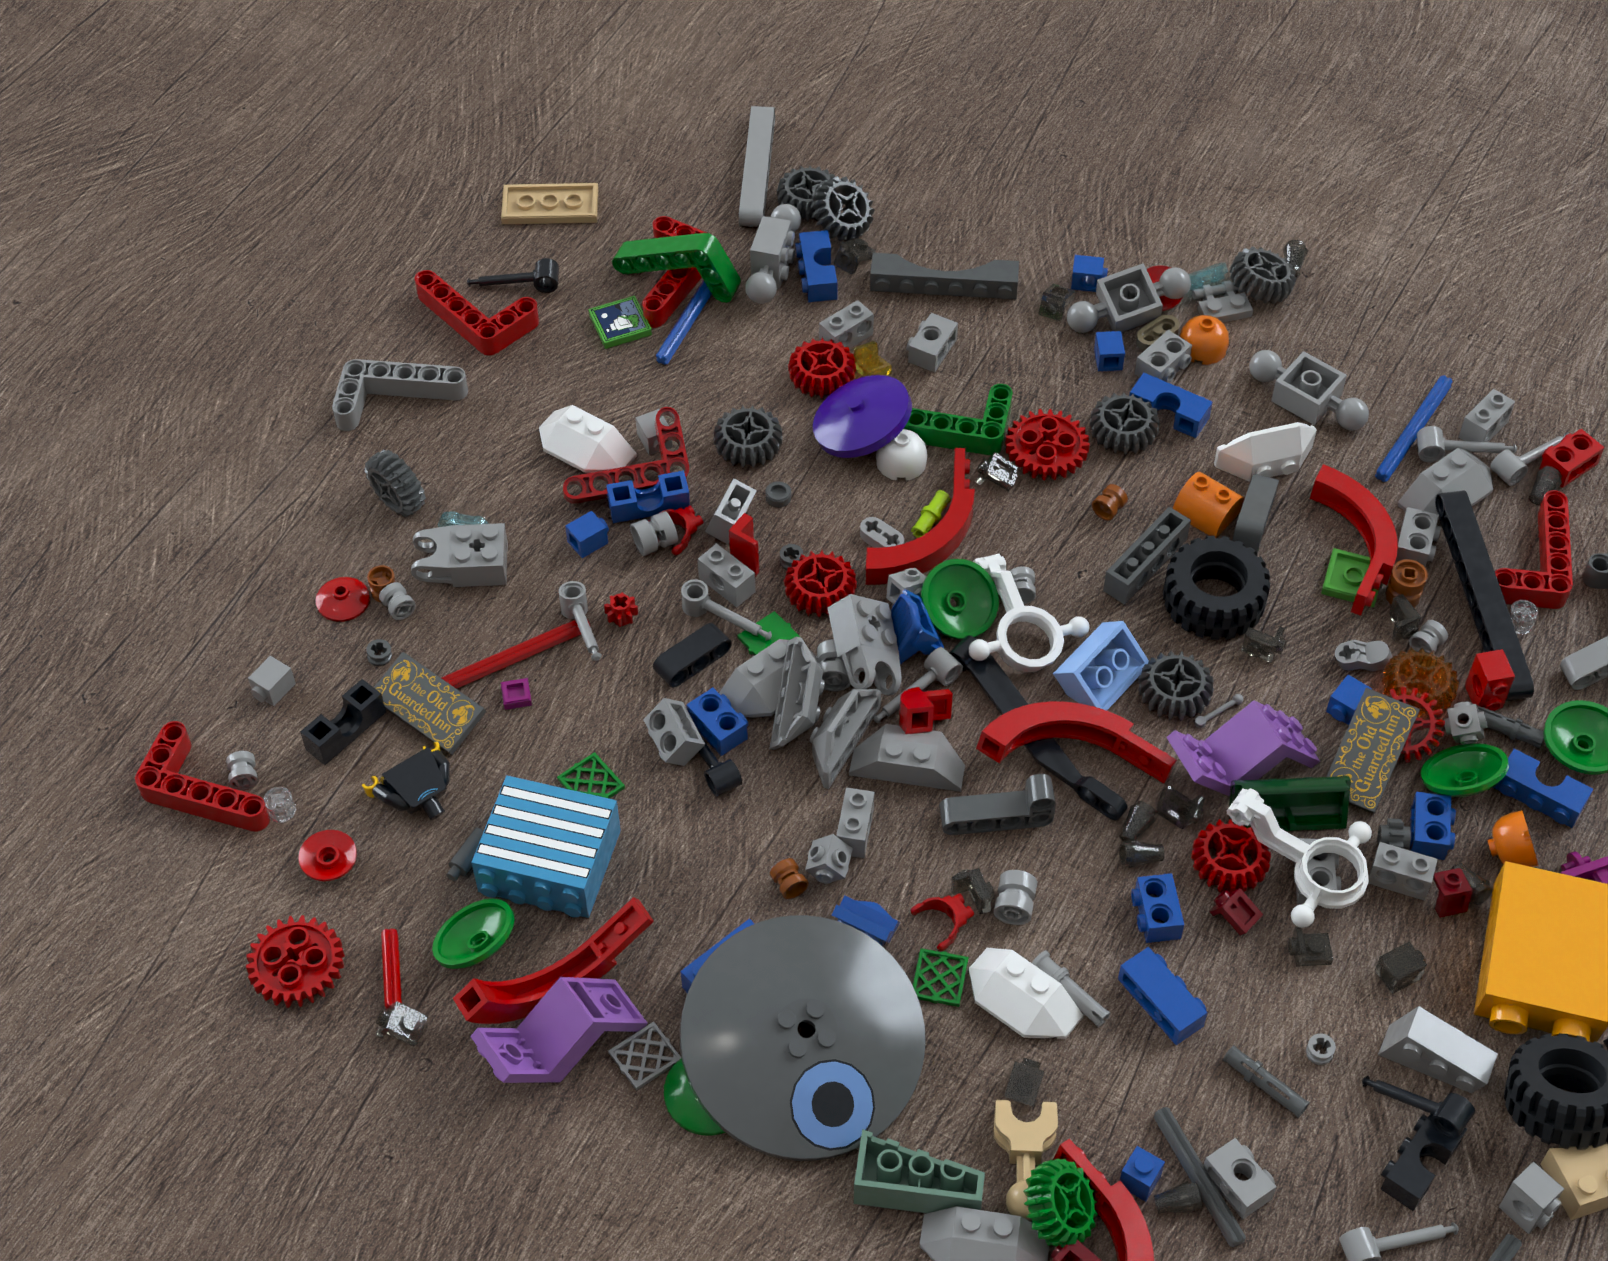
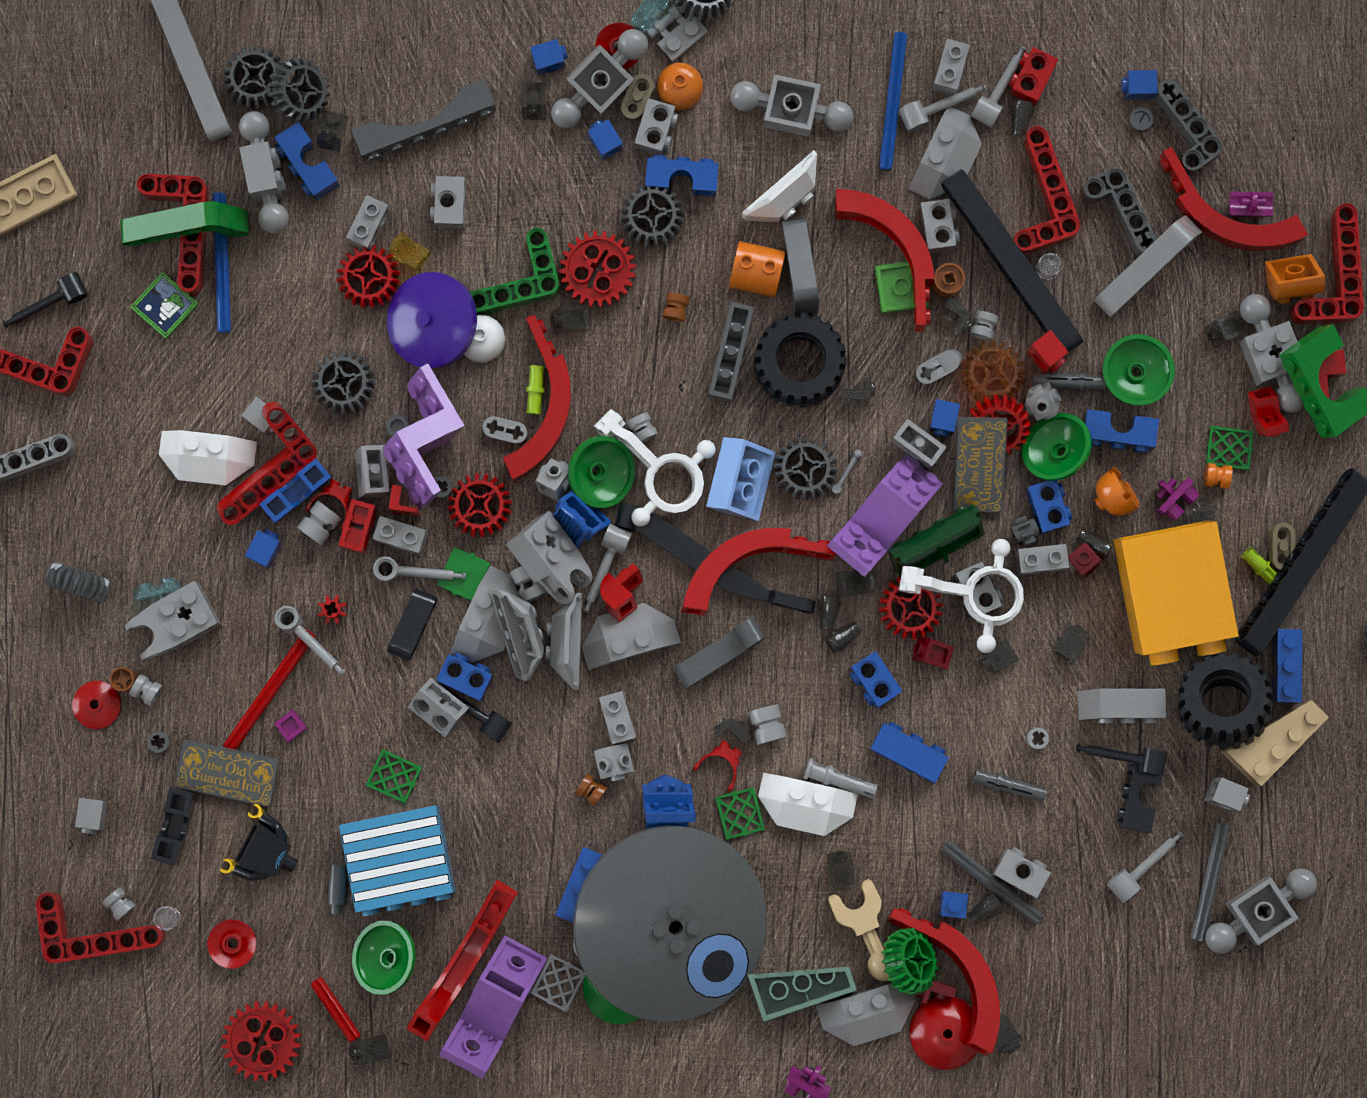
camera: 30 degrees left, 30 degrees up
(683, 550) = (357, 526): none -> red brick
(797, 494) = (436, 429): none -> medium lavender bracket
(1310, 707) = (918, 444): none -> light grey brick

